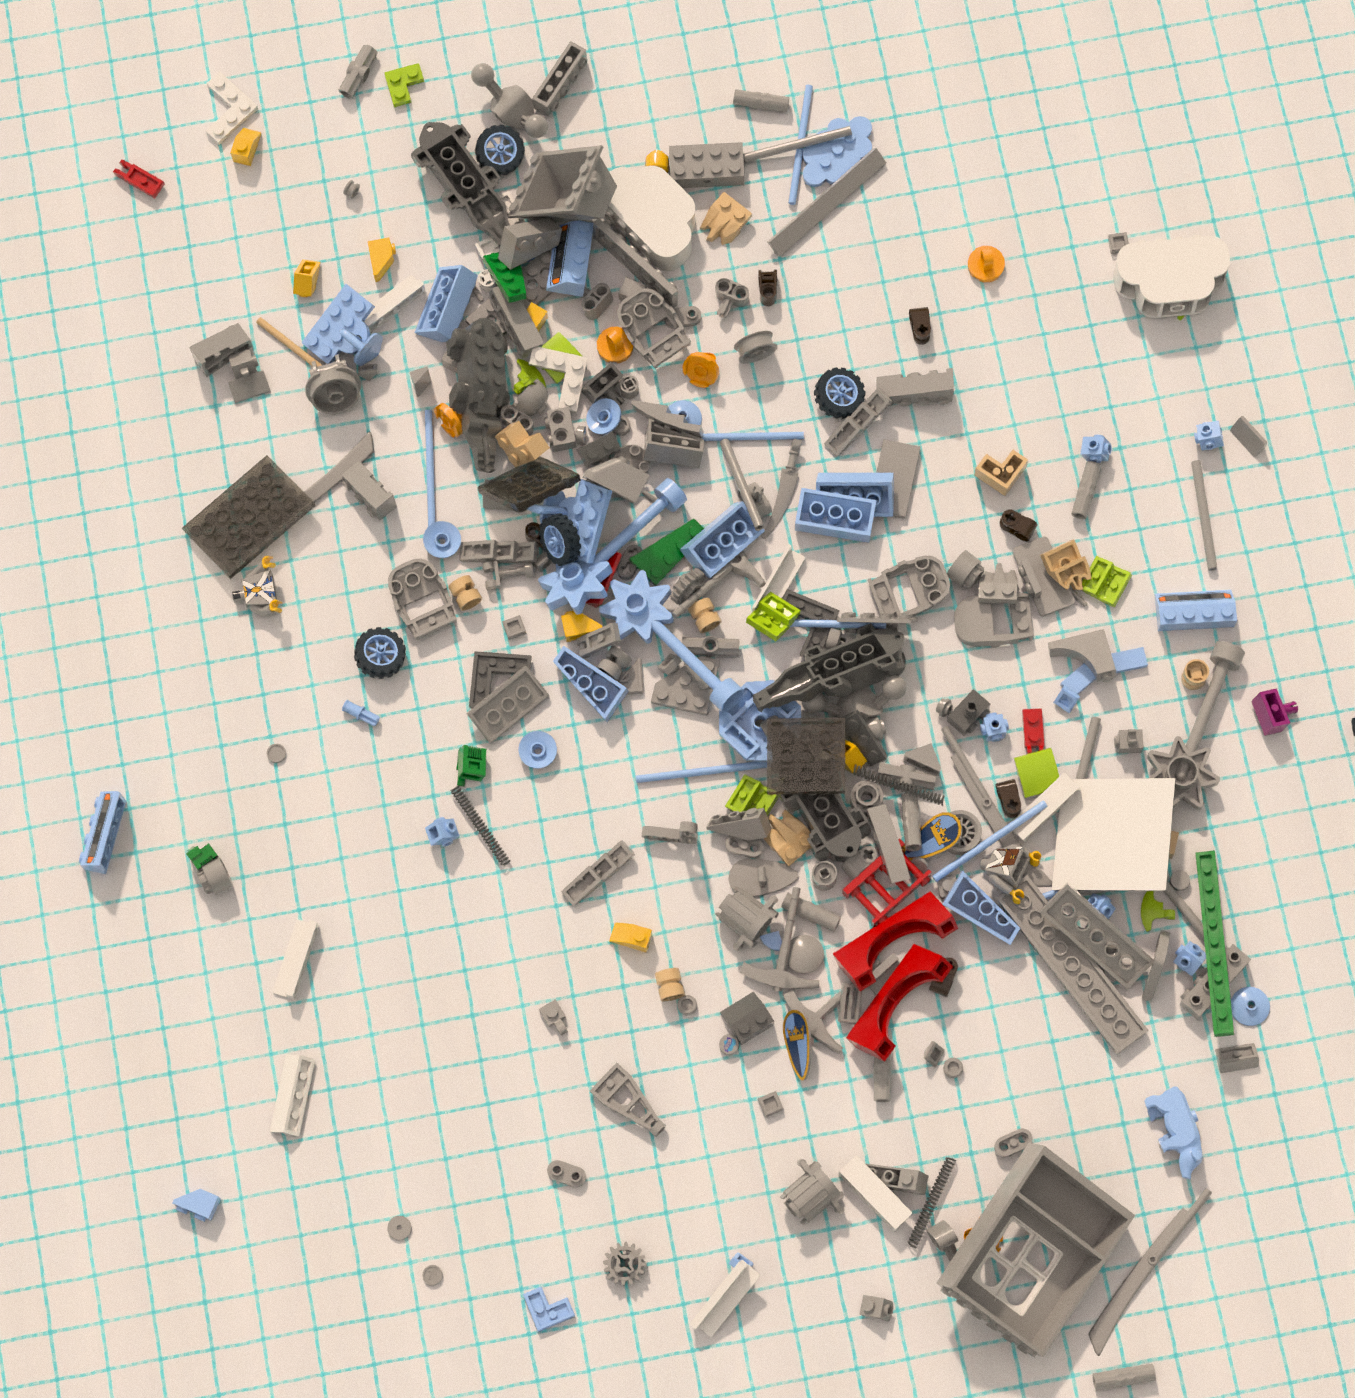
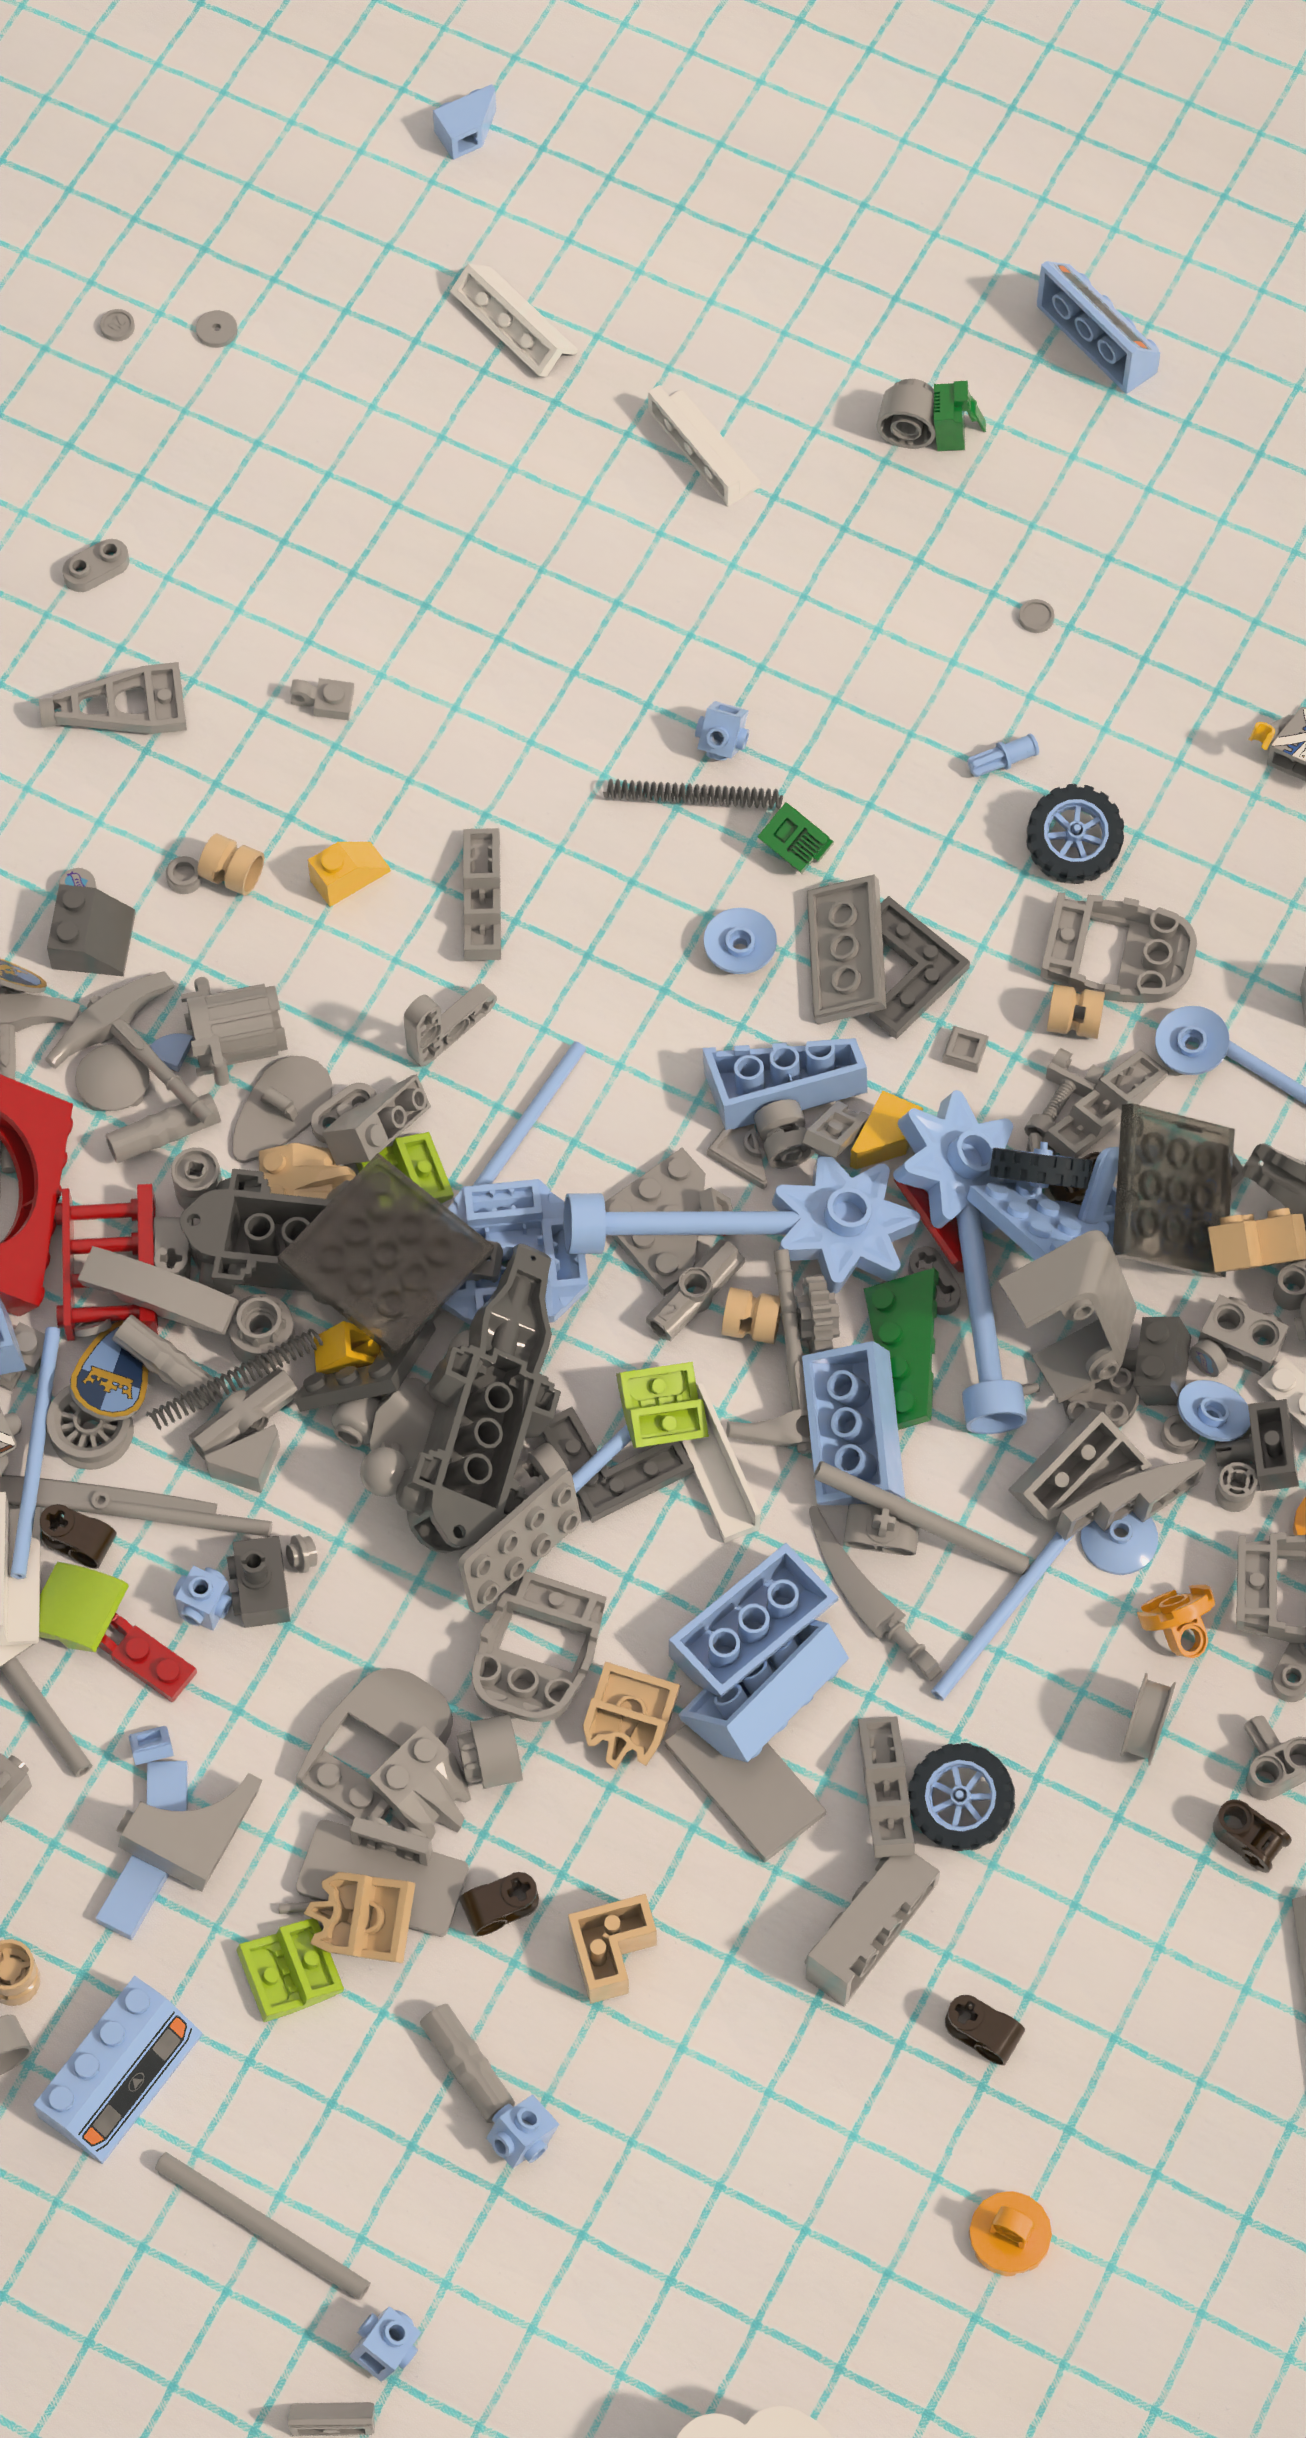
camera: 125 degrees right, 10 degrees down
(905, 536) = (629, 1713): none -> tan plate

